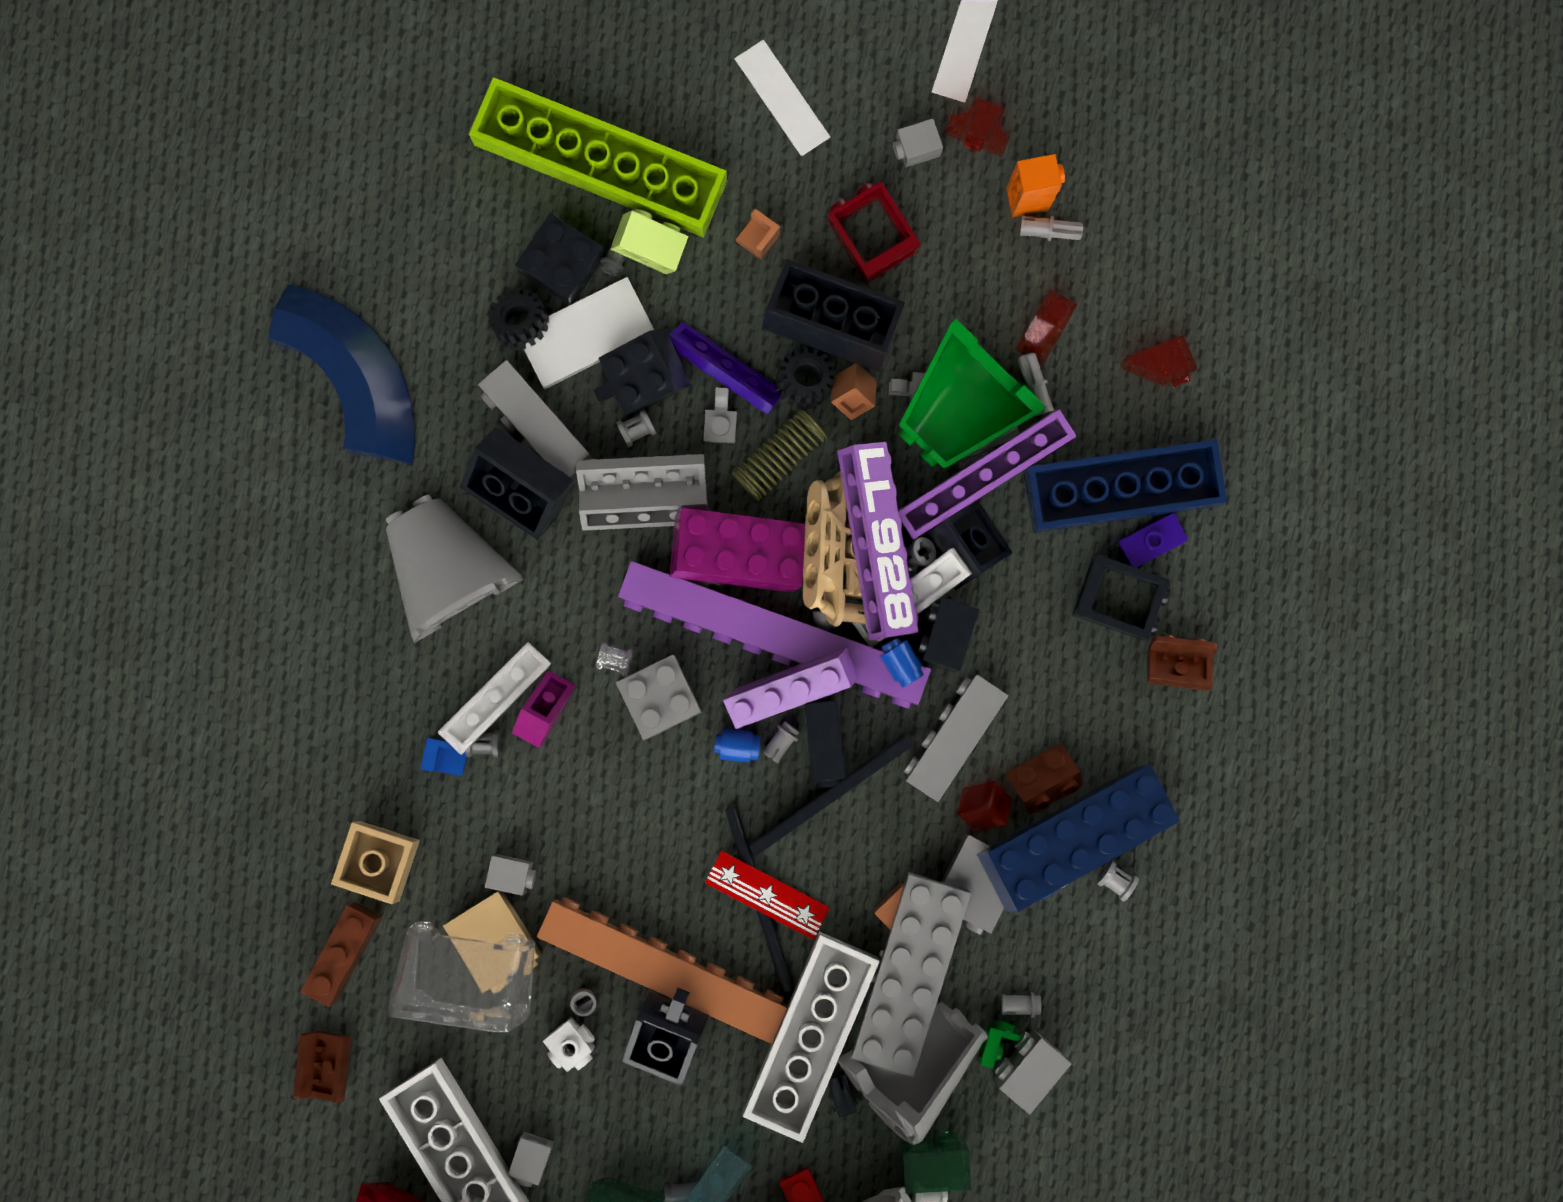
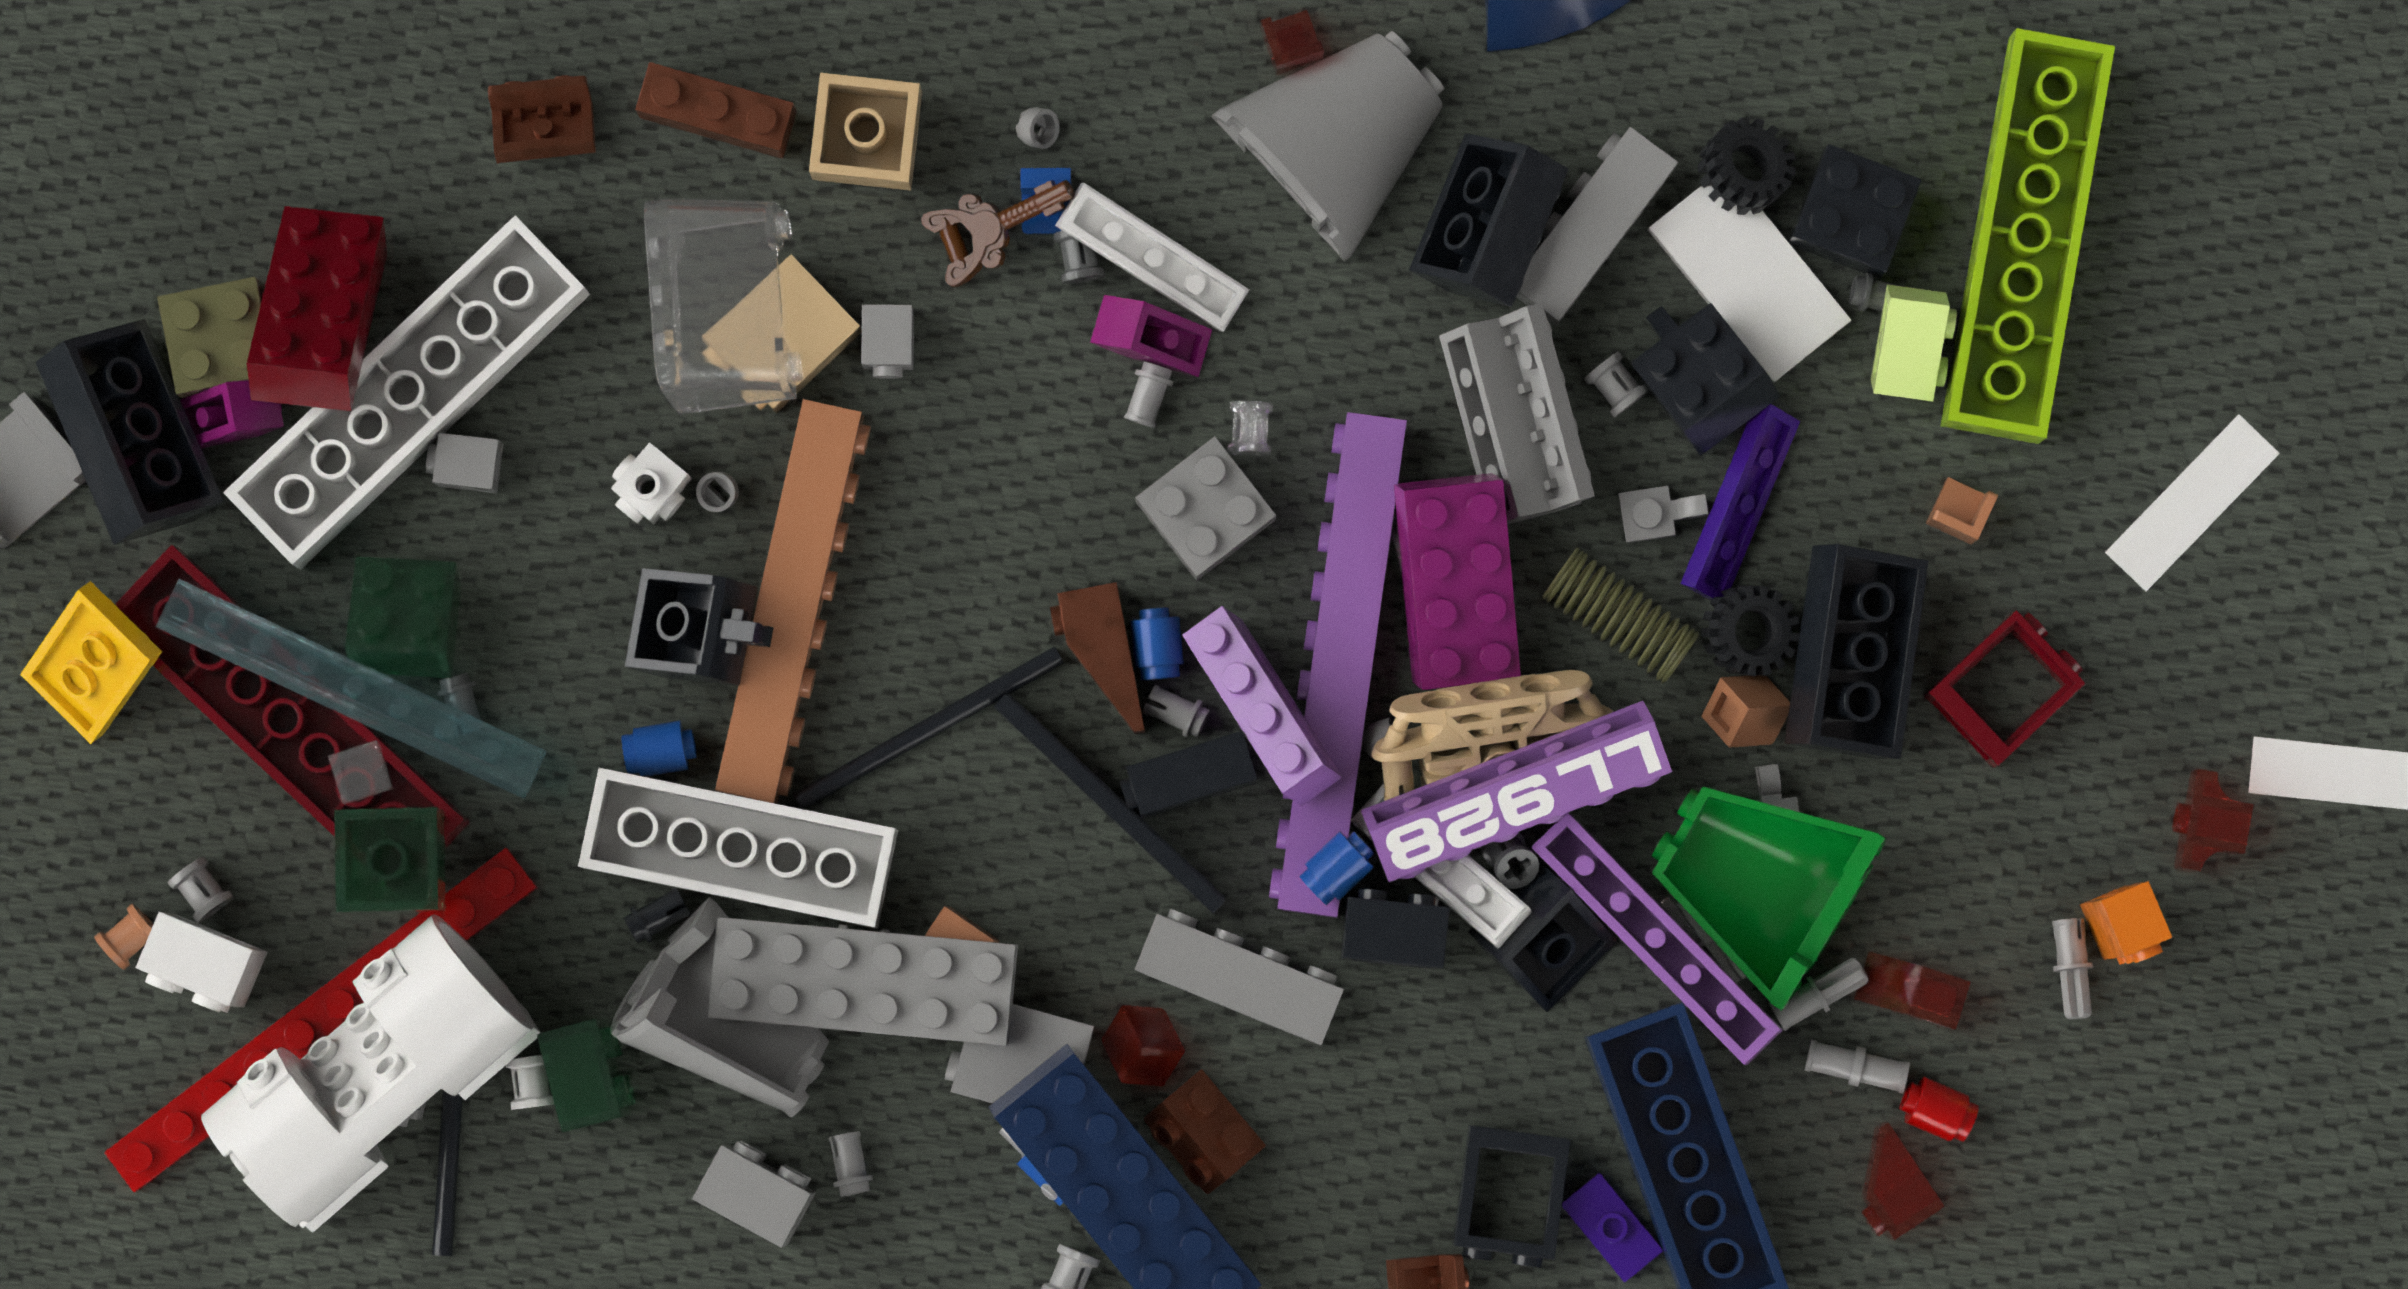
camera: 80 degrees right, 0 degrees up
(379, 583) = (1291, 42): none -> clear red panel
(391, 749) = (1045, 119): none -> light grey hinge
(454, 796) = (989, 228): none -> reddish brown piece
(580, 718) = (1148, 394): none -> light grey pin
(726, 781) = (1098, 638): none -> copper slope
(737, 1073) = (658, 749): none -> blue brick
(767, 895) = (937, 738): red sticker -> none
(918, 143) = (2162, 729): light grey brick -> none
(992, 1048) = (776, 1130): green bracket -> none
(1084, 371) = (1857, 1066): none -> light grey pin
(1121, 327) = (1938, 1109): none -> red brick

